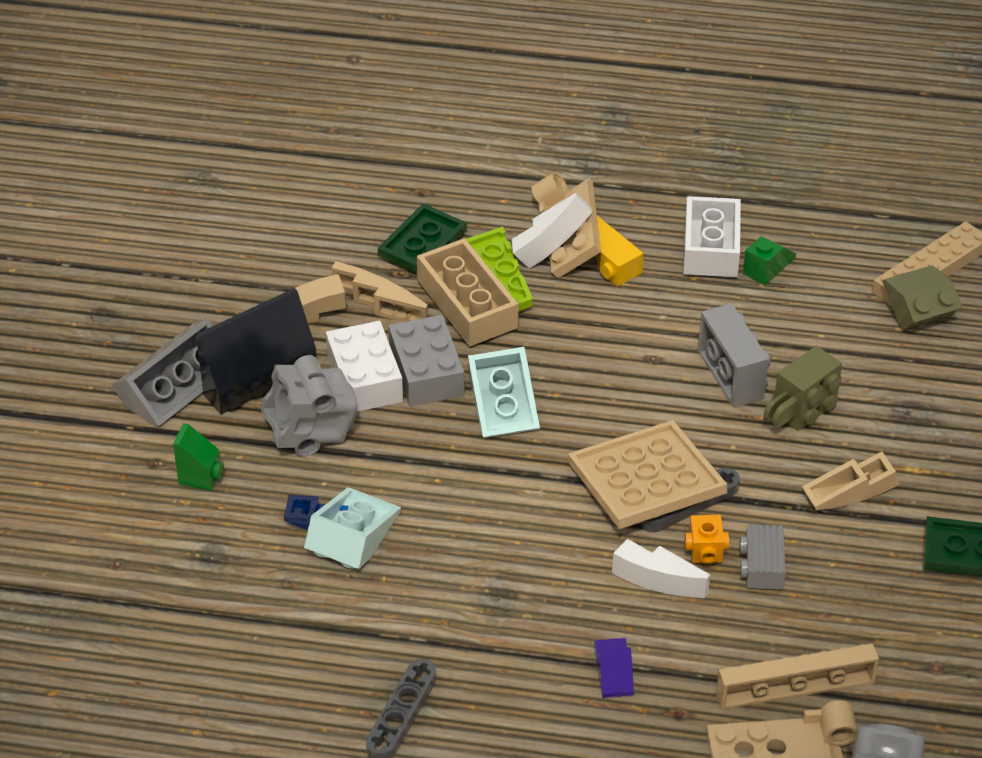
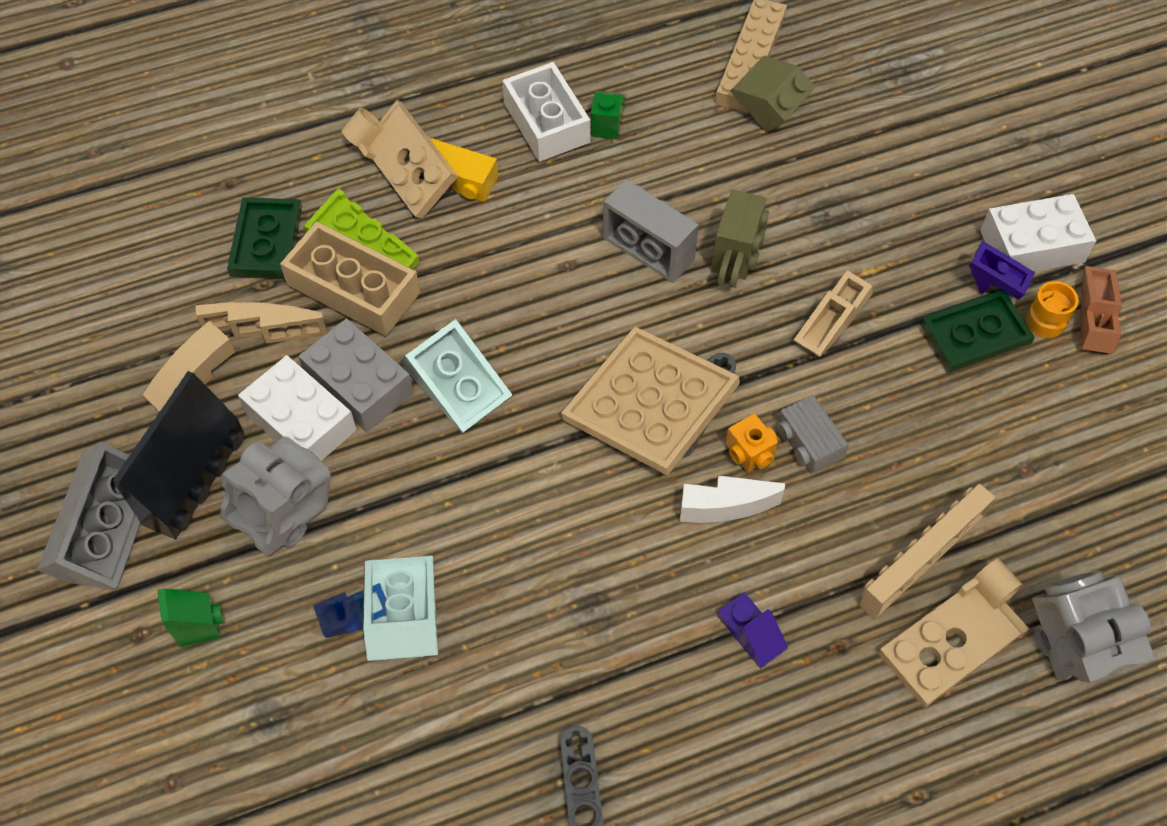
camera: 30 degrees left, 15 degrees up
(550, 230) = (394, 174): white slope -> none

